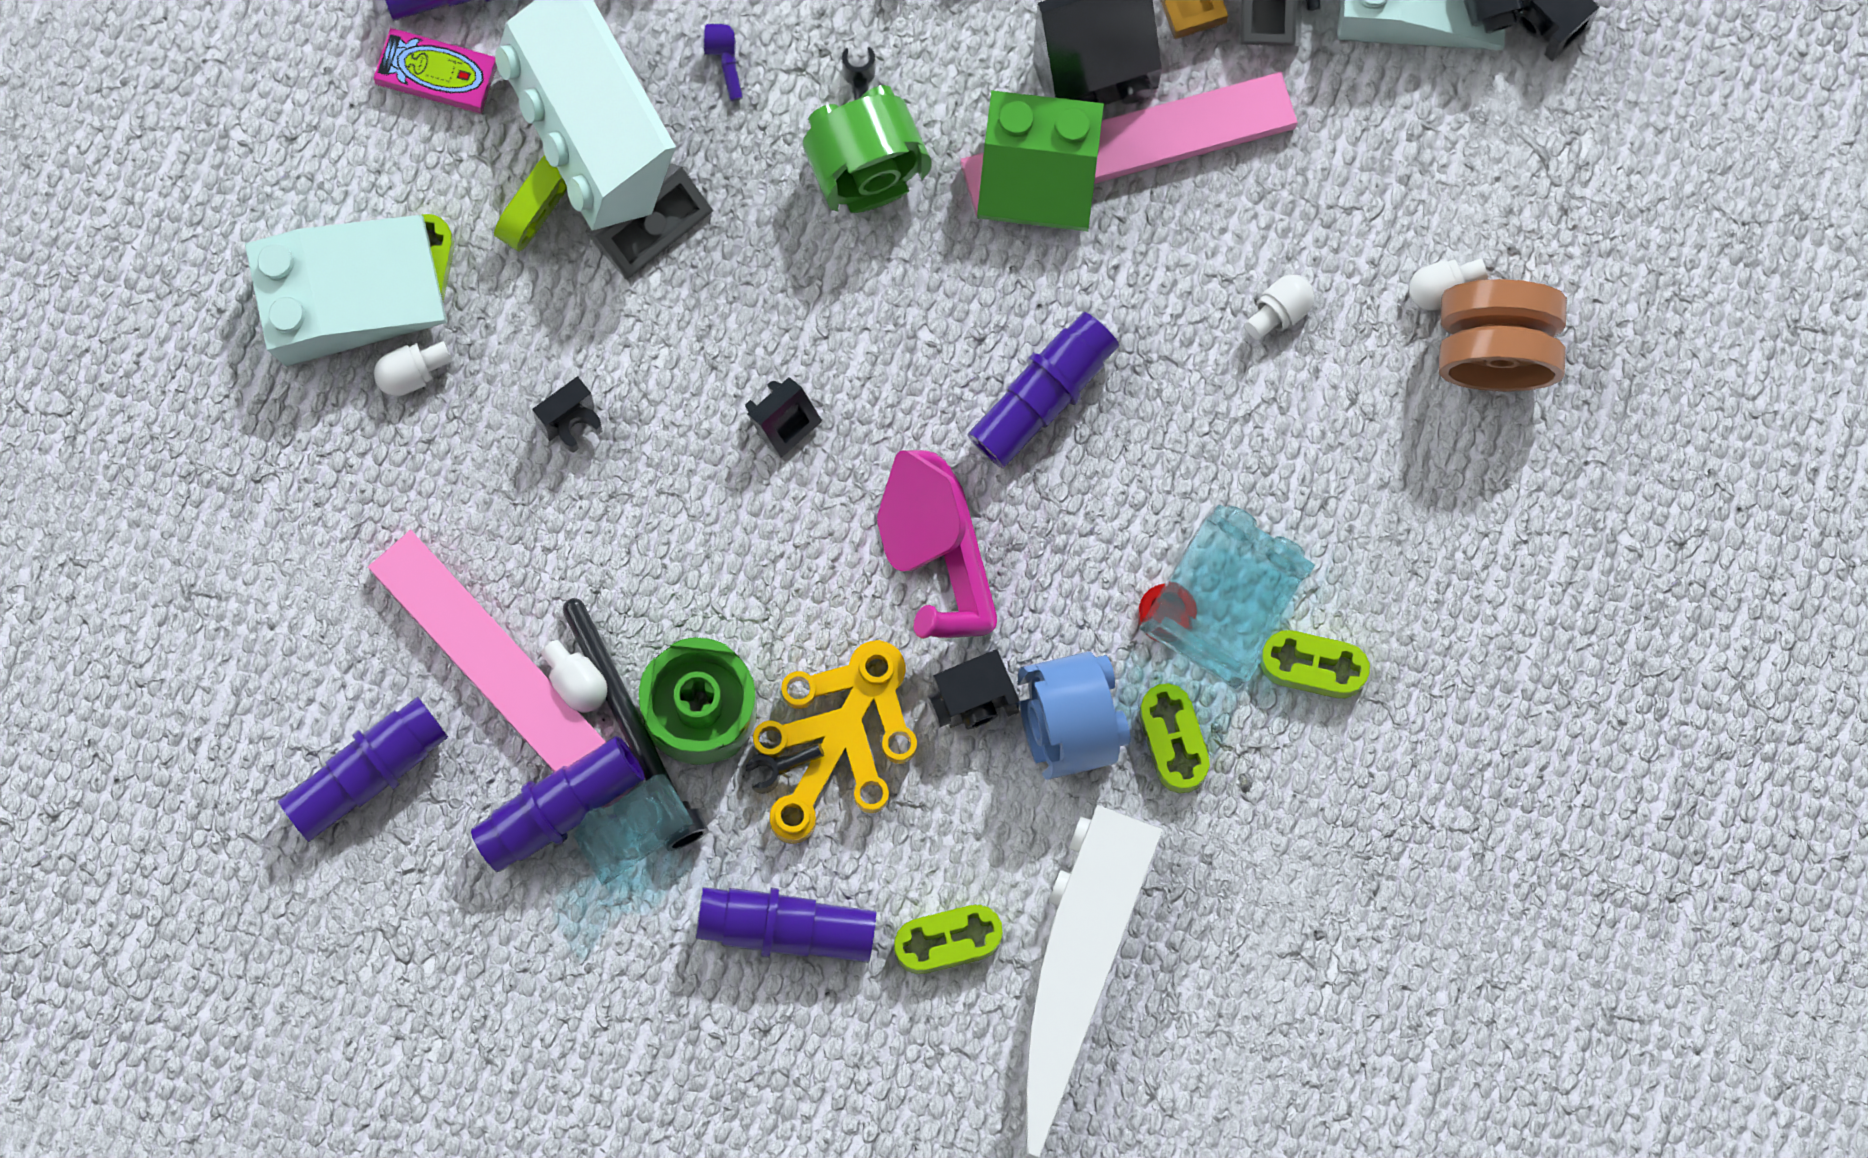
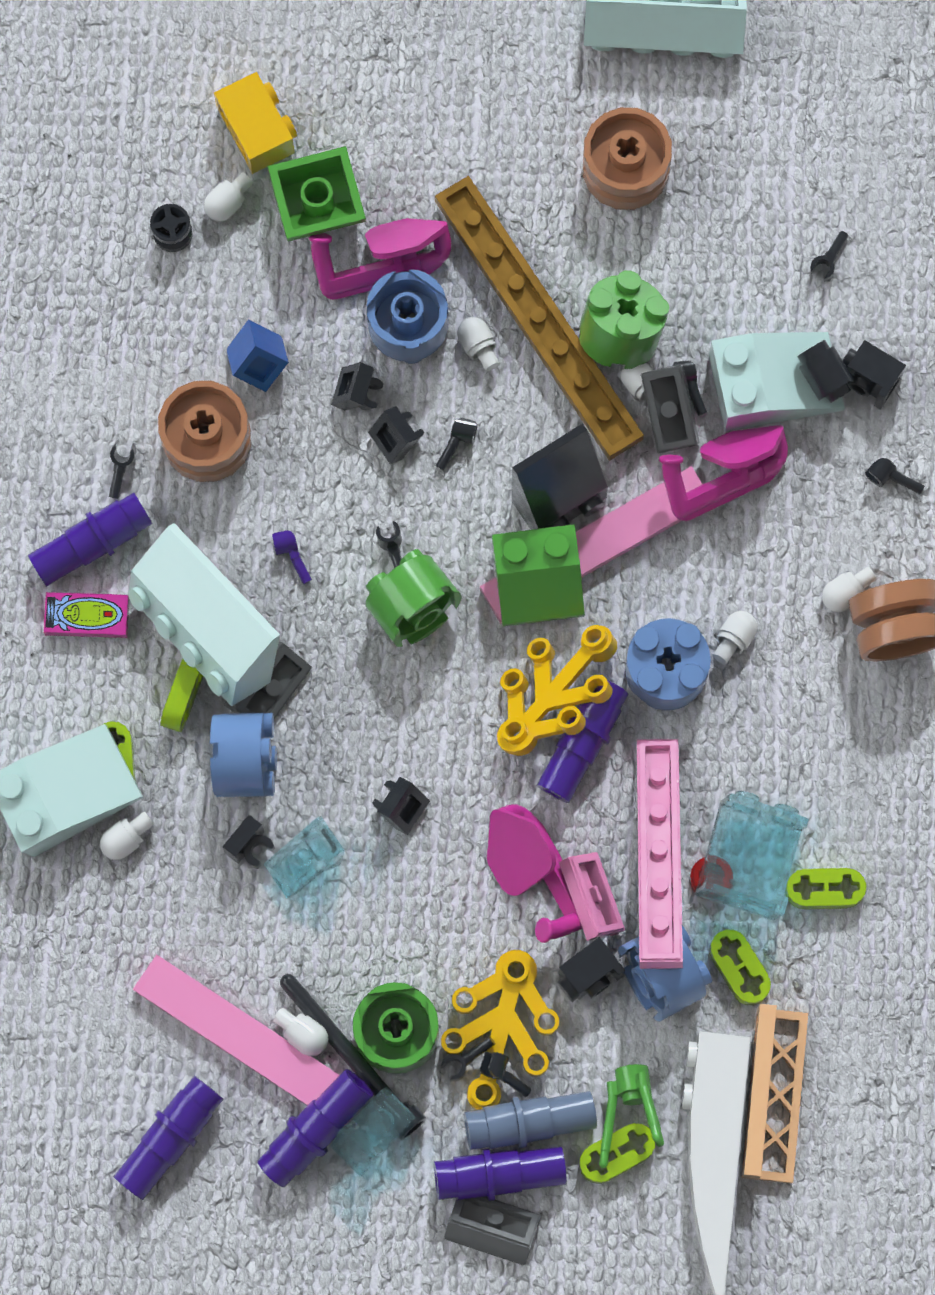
camera: 10 degrees left, 0 degrees up
(590, 297) = (243, 755): none -> medium blue brick
(638, 451) = (305, 857): none -> clear light blue slope
(759, 995) = (493, 1228): none -> dark grey slope
(815, 784) = (495, 1066): none -> black hand
(843, 866) = (529, 1120): none -> sand blue piece
(970, 355) = (554, 694): none -> yellow plant
(993, 861) = (634, 1088): none -> bright green plant
(997, 598) = (592, 896): none -> bright pink tile
(1103, 561) = (659, 854): none -> bright pink tile
(1155, 908) = (759, 1094): none -> light nougat fence
(1187, 288) = (684, 648): none -> medium blue brick
(1344, 64) = (751, 455): none -> dark pink piece
(1535, 139) = (884, 469): none -> black hand

